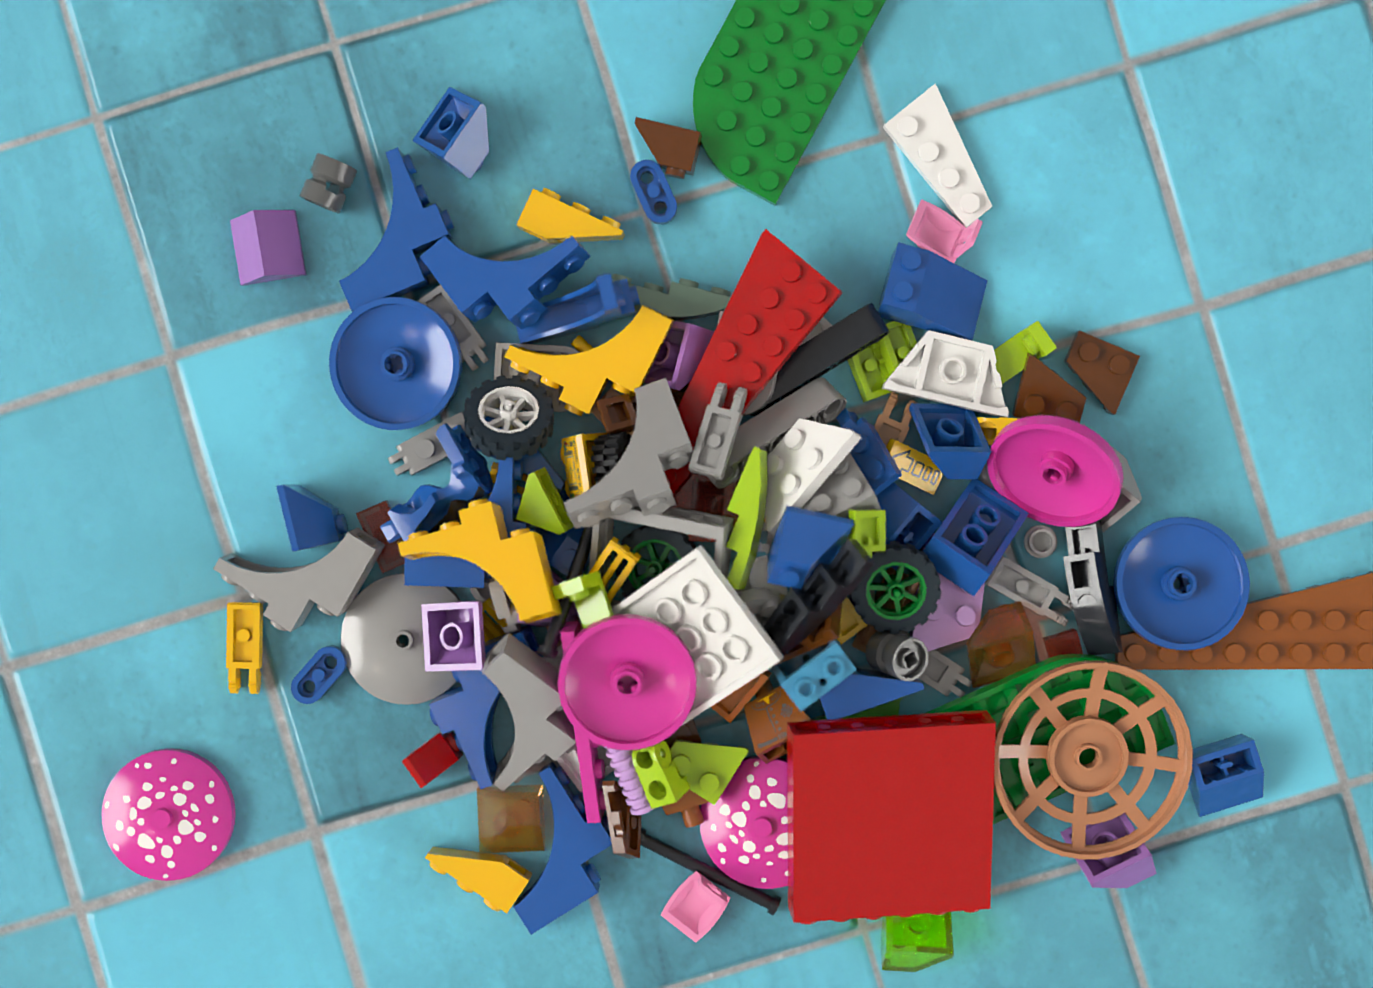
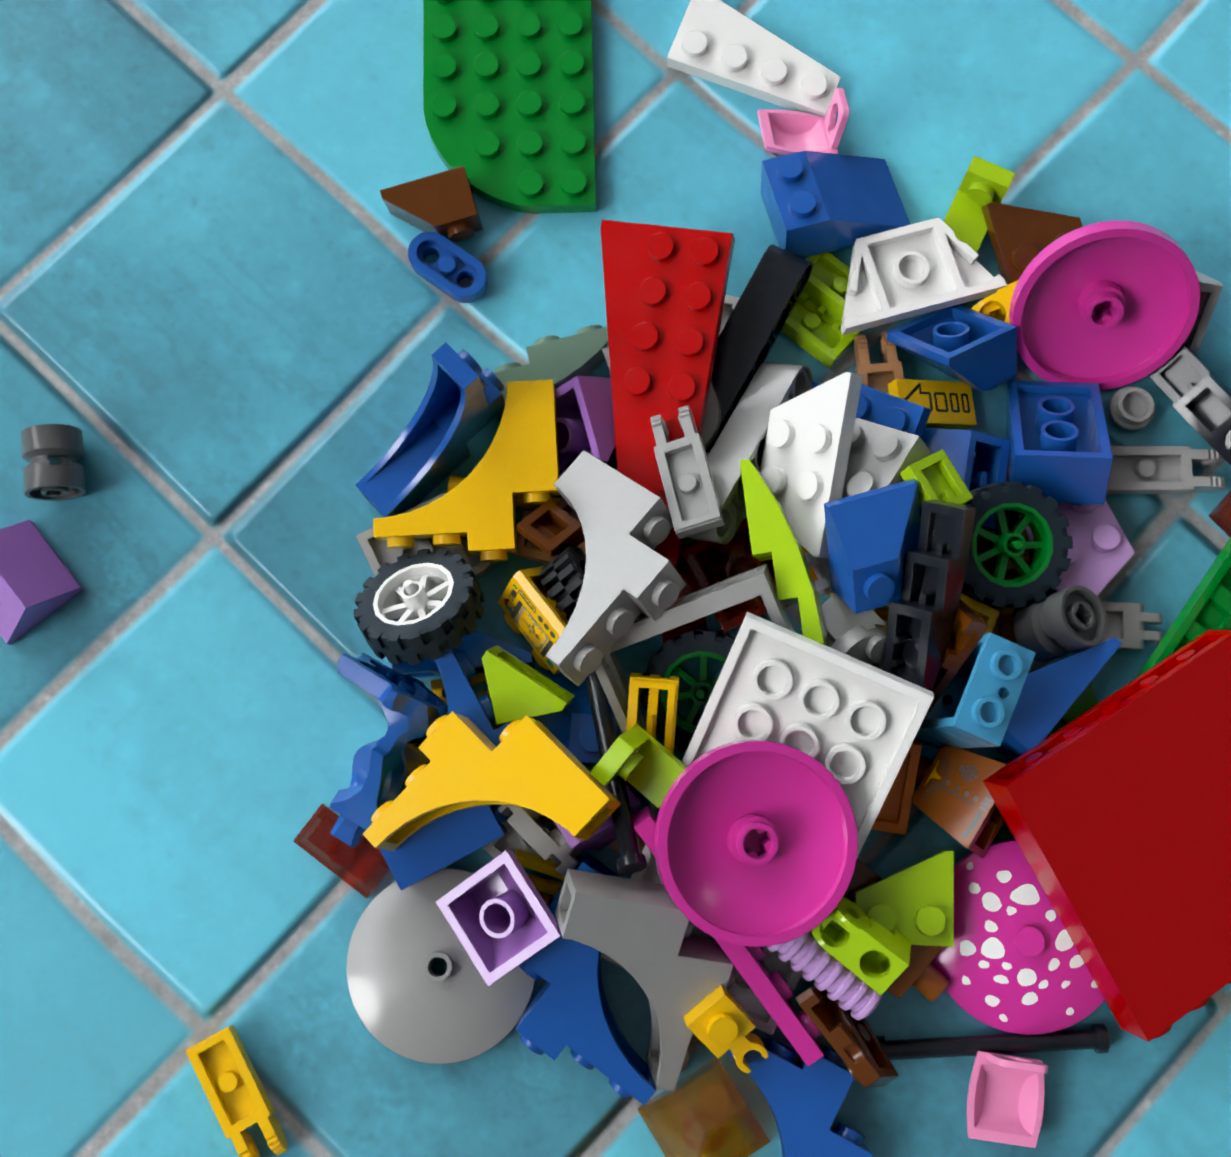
camera: 25 degrees left, 10 degrees down
(294, 590) = (264, 988): light grey arch -> none
(309, 518) = (238, 881): blue slope -> none
(320, 673) = (353, 1075): blue plate -> none
(395, 363) = (245, 626): blue dish -> none
(412, 228) = (185, 507): blue arch -> none
(423, 448) = (337, 714): light grey hinge -> none
(432, 758) = (559, 1099): red slope -> none
(456, 133) = (180, 325): blue slope -> none
(466, 334) = (293, 546): light grey hinge -> none
(514, 286) = (339, 448): blue arch -> none
(551, 772) = (724, 1026): none -> yellow plate
(556, 221) = (356, 358): yellow slope -> none
(1000, 645) = (1170, 548): clear orange slope -> none
(1102, 368) = (1072, 181): reddish brown wing -> none

